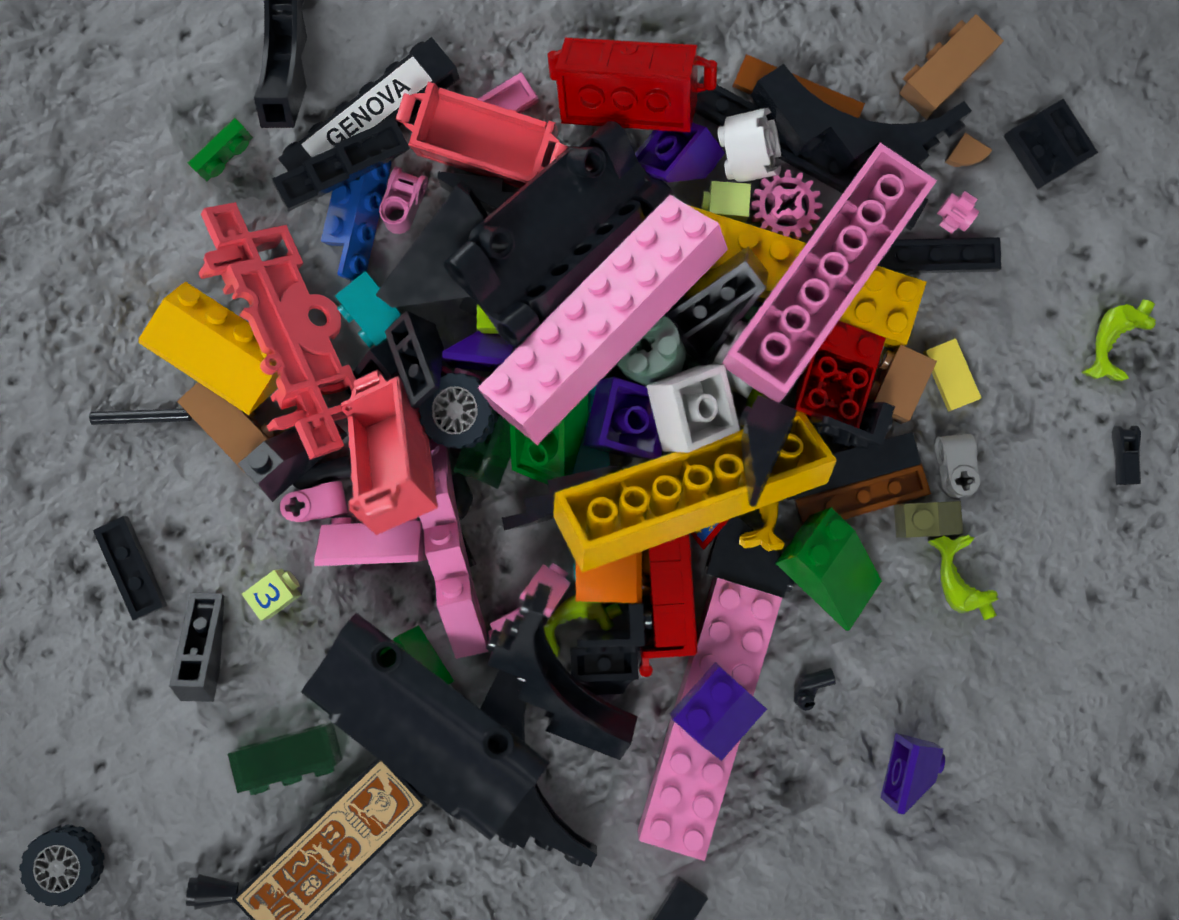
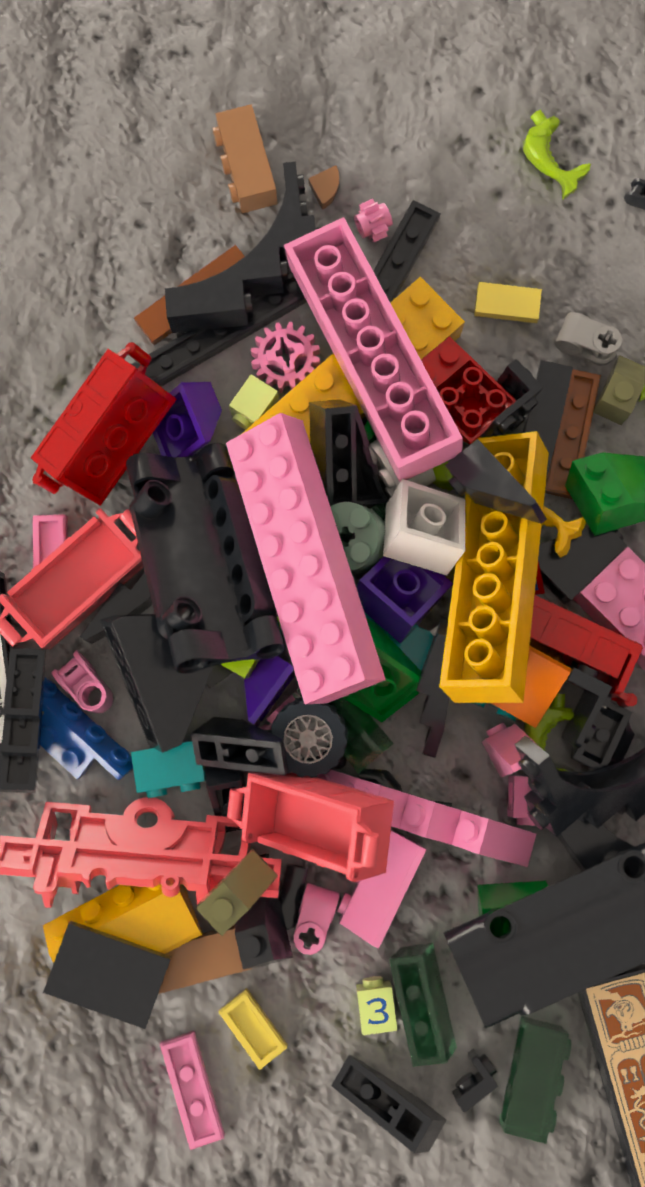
camera: 60 degrees left, 5 degrees down
(125, 480) = (192, 1090): none -> bright pink tile
(130, 568) = (277, 1131): black plate -> none
(139, 416) = (139, 1044): black bar -> none
(173, 355) = (107, 974): none -> black tile
(200, 503) = (253, 1028): none -> light yellow tile
(251, 709) = (473, 1088): none -> black bracket
(292, 420) = (236, 892): none -> olive slope
(294, 631) = (422, 1005): none -> clear green brick
(750, 146) = (218, 355): white brick -> none
(902, 381) = (492, 343): medium nougat brick -> none
(1050, 144) = (357, 117): black slope -> none

